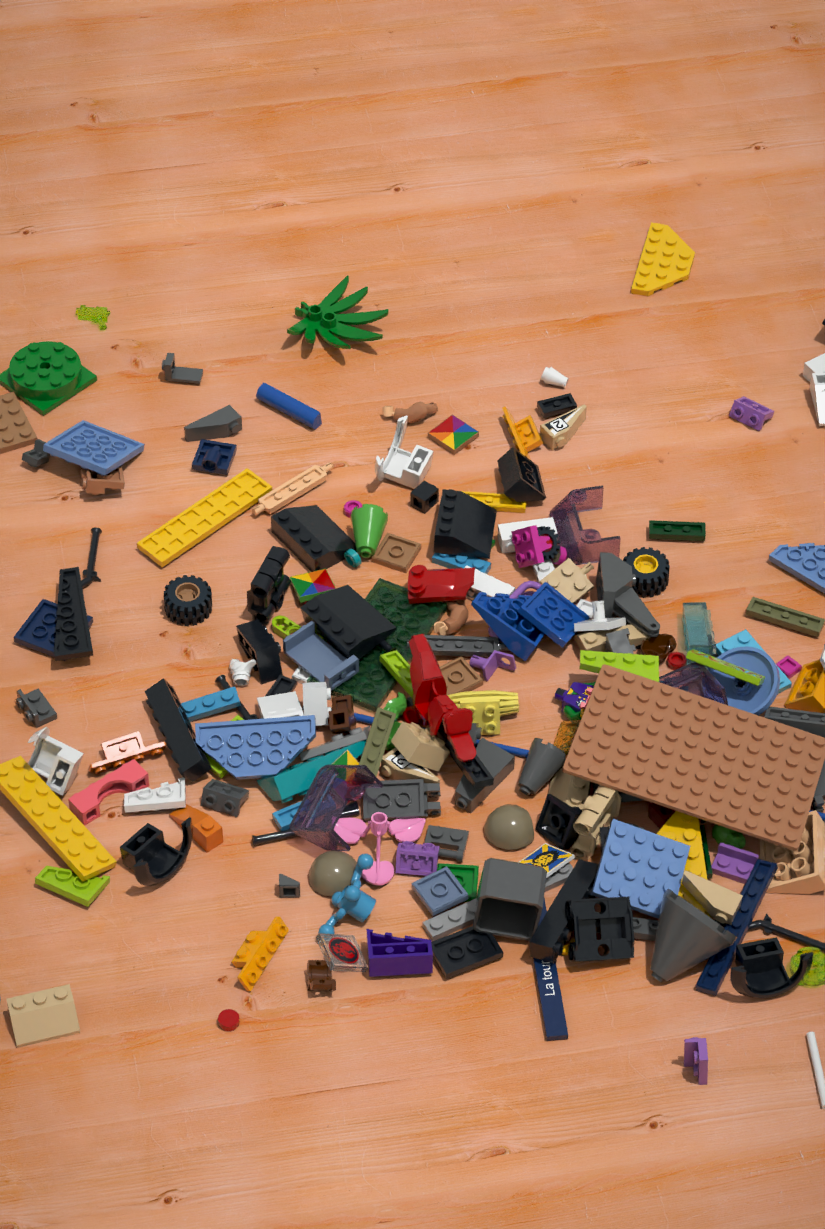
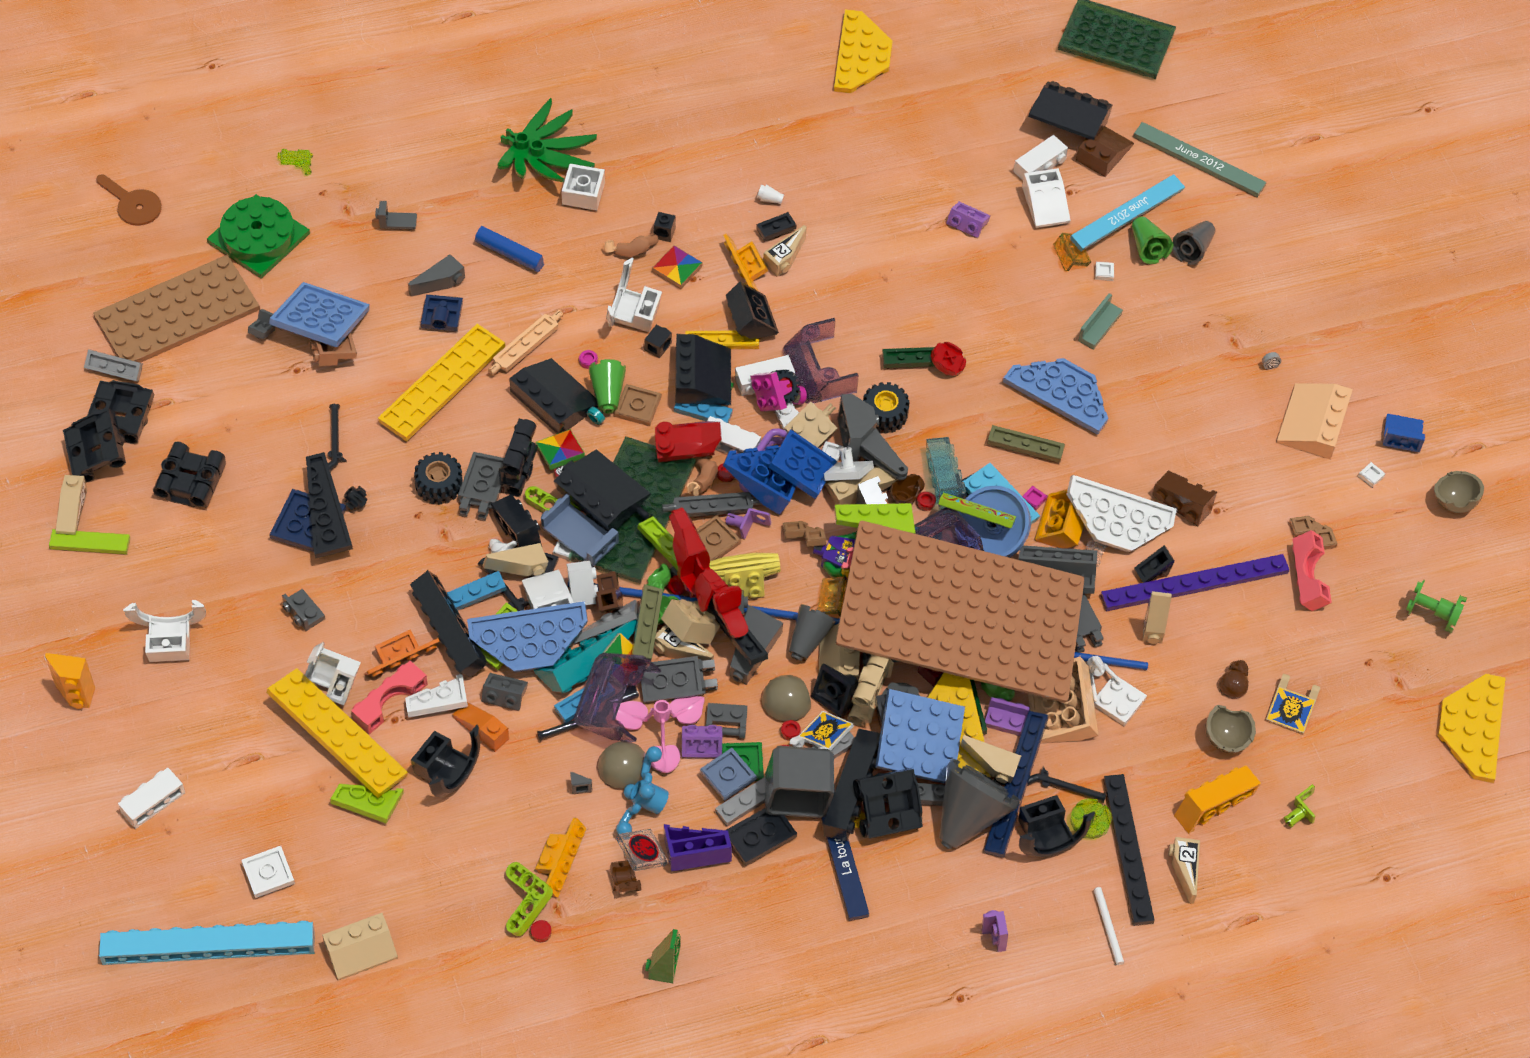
camera: 10 degrees left, 10 degrees up
(103, 611) = (355, 497): none -> black gear
(224, 986) = (533, 897): none -> lime beam
(228, 611) = (480, 484): none -> dark grey tile
(259, 678) = (519, 561): none -> tan slope
(351, 1052) = (664, 959): none -> green wedge
(369, 356) = (583, 187): none -> white brick
(445, 397) = (665, 226): none -> black brick
(475, 620) = (724, 475): none -> red tile
(510, 855) = (790, 729): none -> red tile
(545, 675) = (813, 536): none -> medium nougat tile
(715, 534) = (948, 358): none -> red tile

